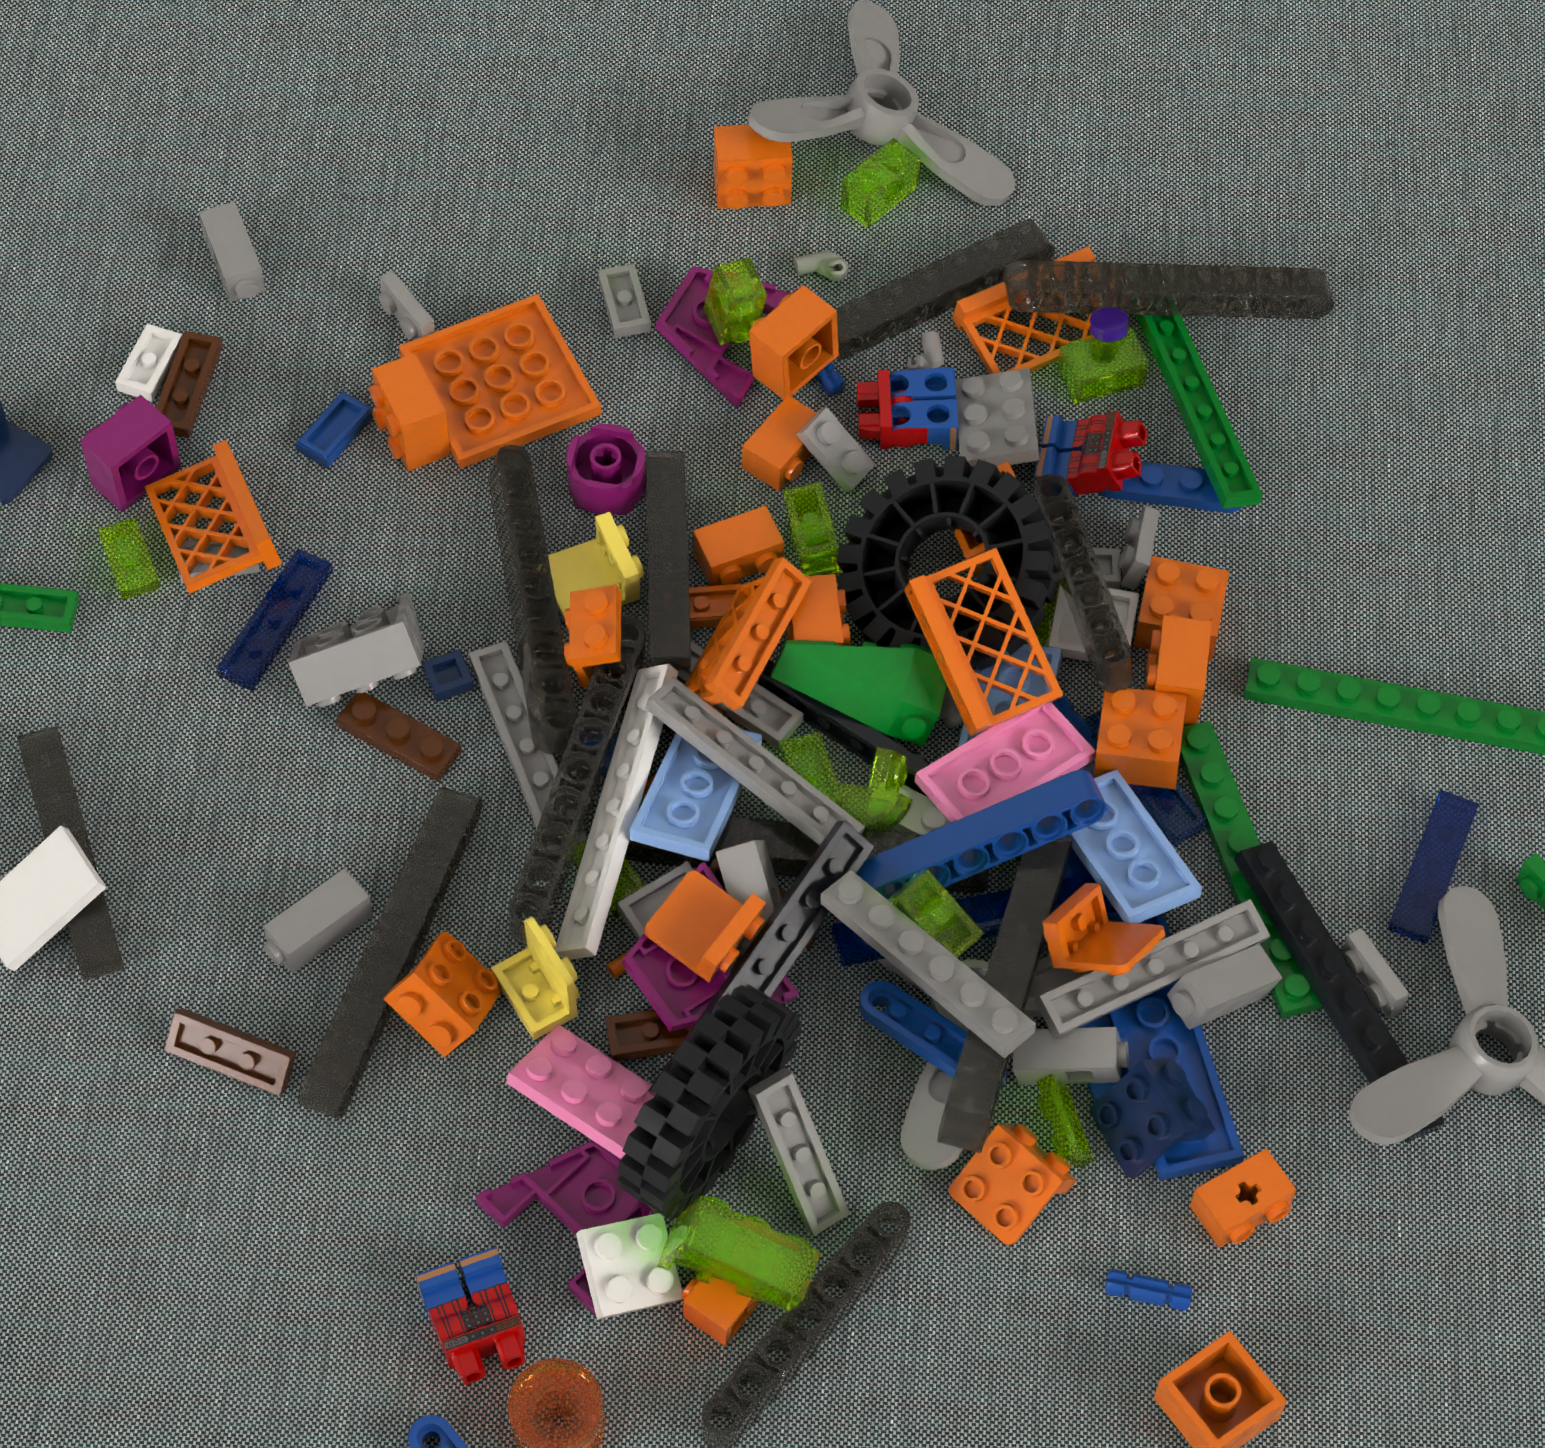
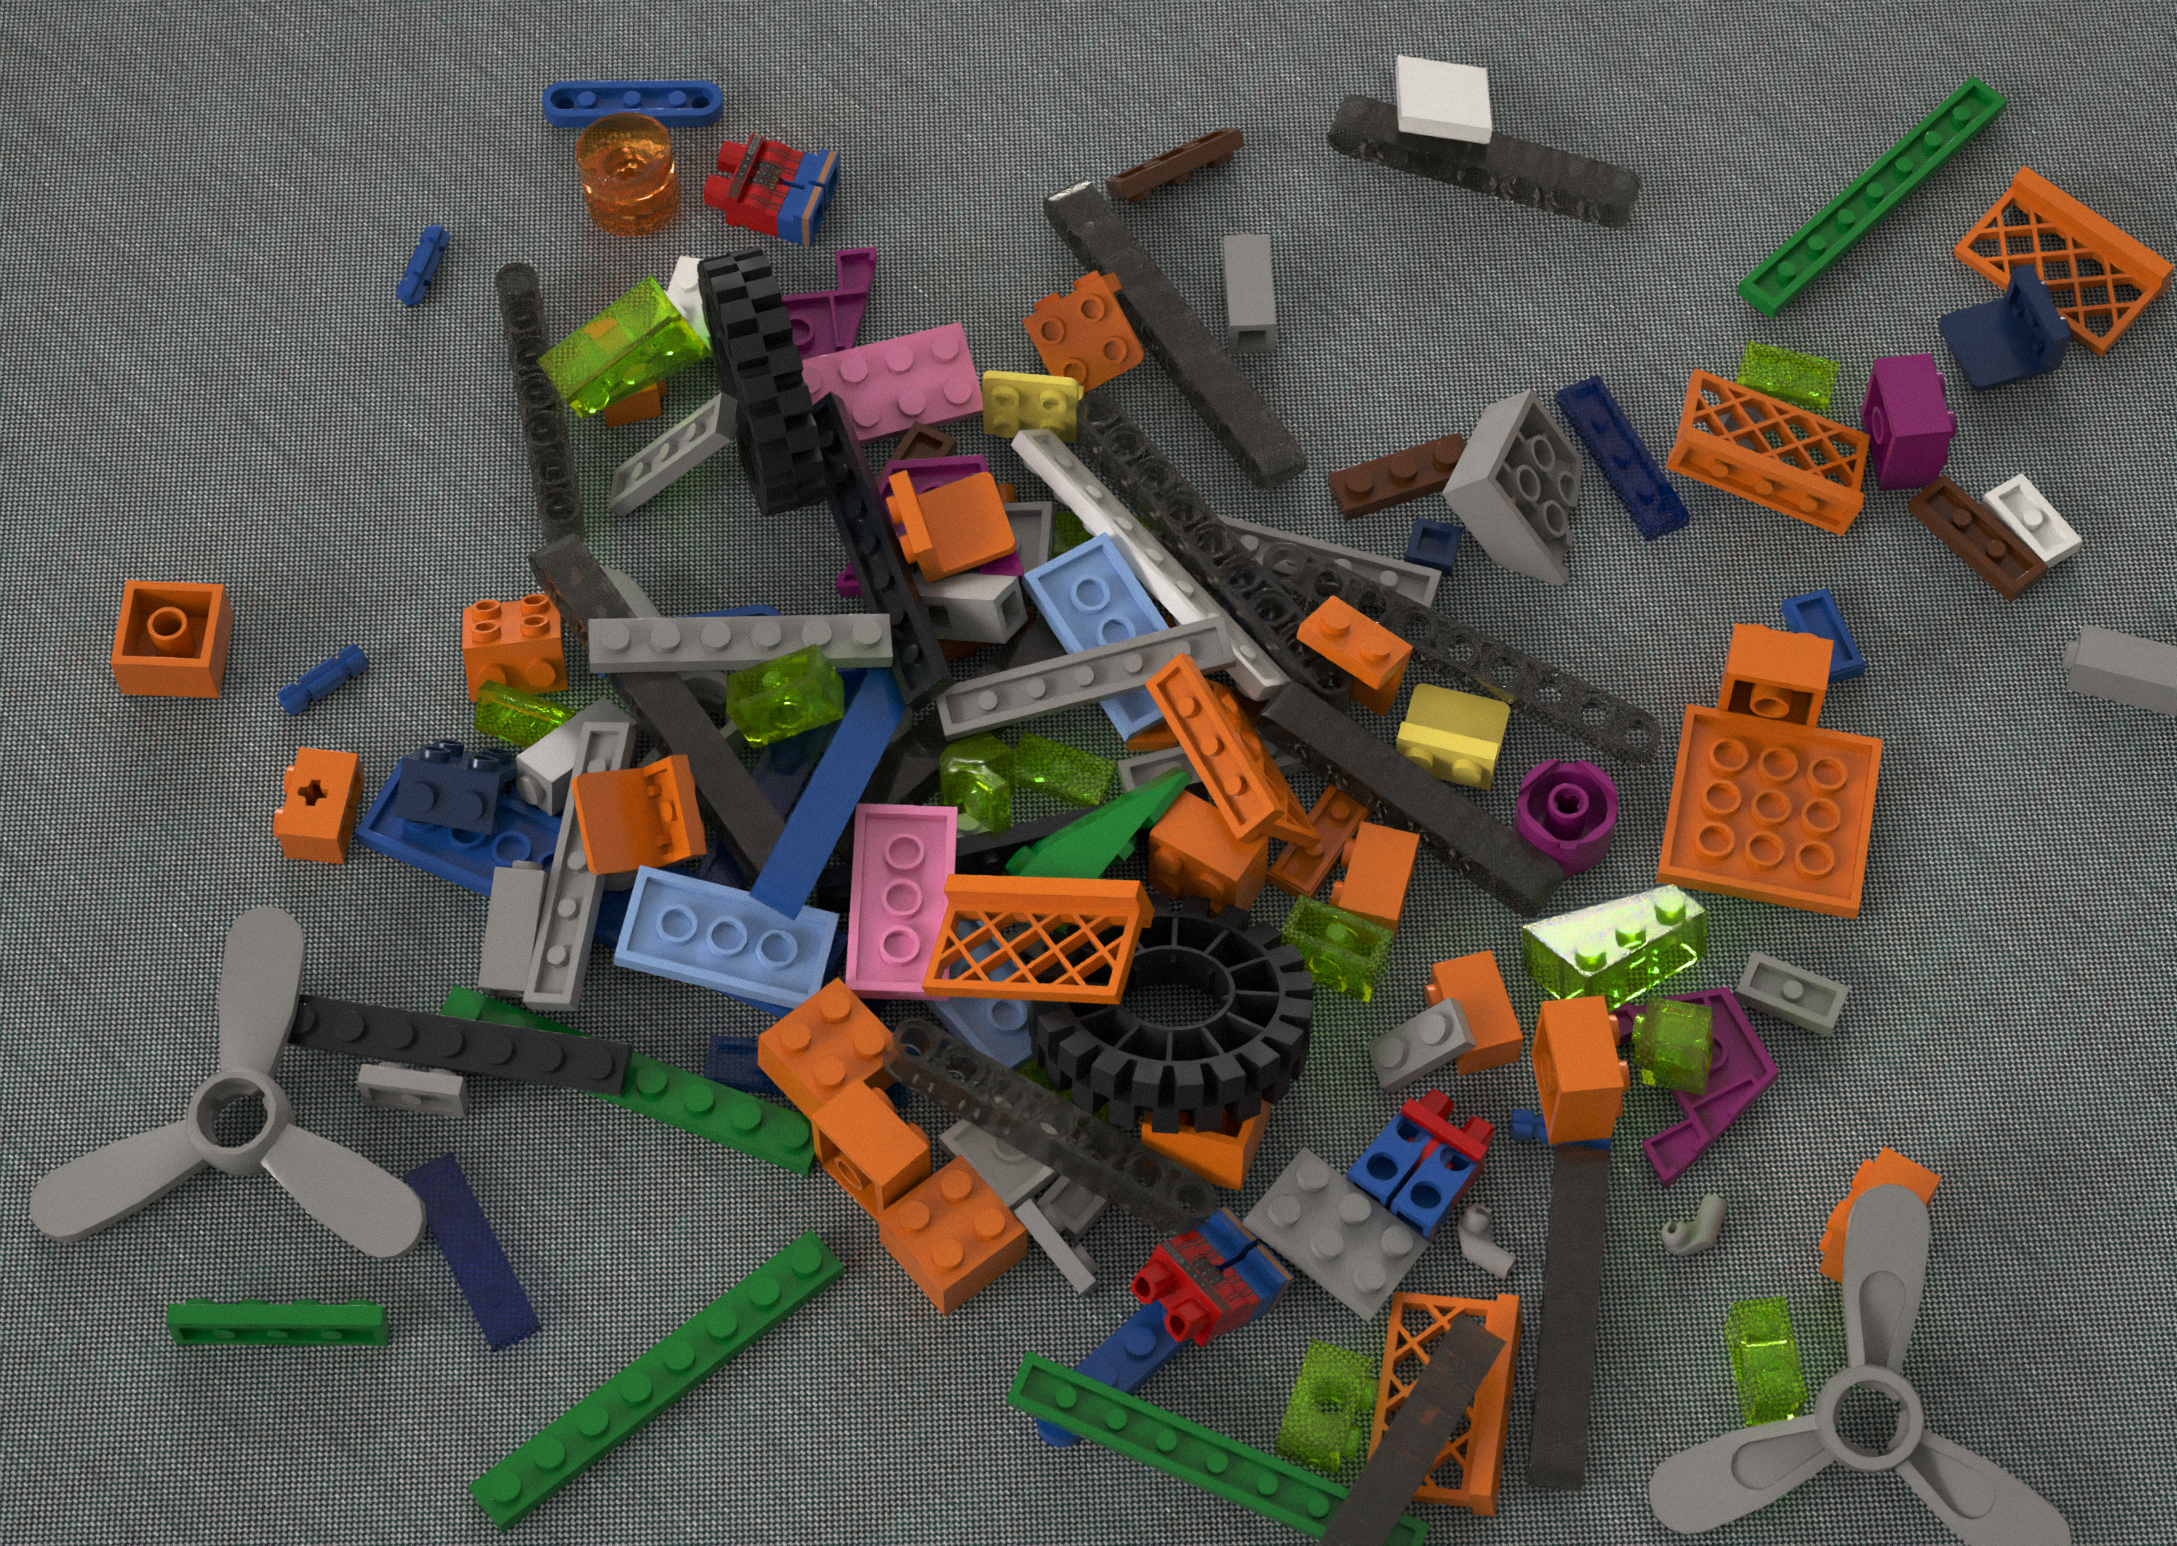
camera: 130 degrees right, 0 degrees up
(399, 300) = (1930, 780): light grey plate -> none
(682, 387) = (1616, 945): none -> clear neon green wedge
(1109, 324) = (1358, 1423): dark purple tile -> none

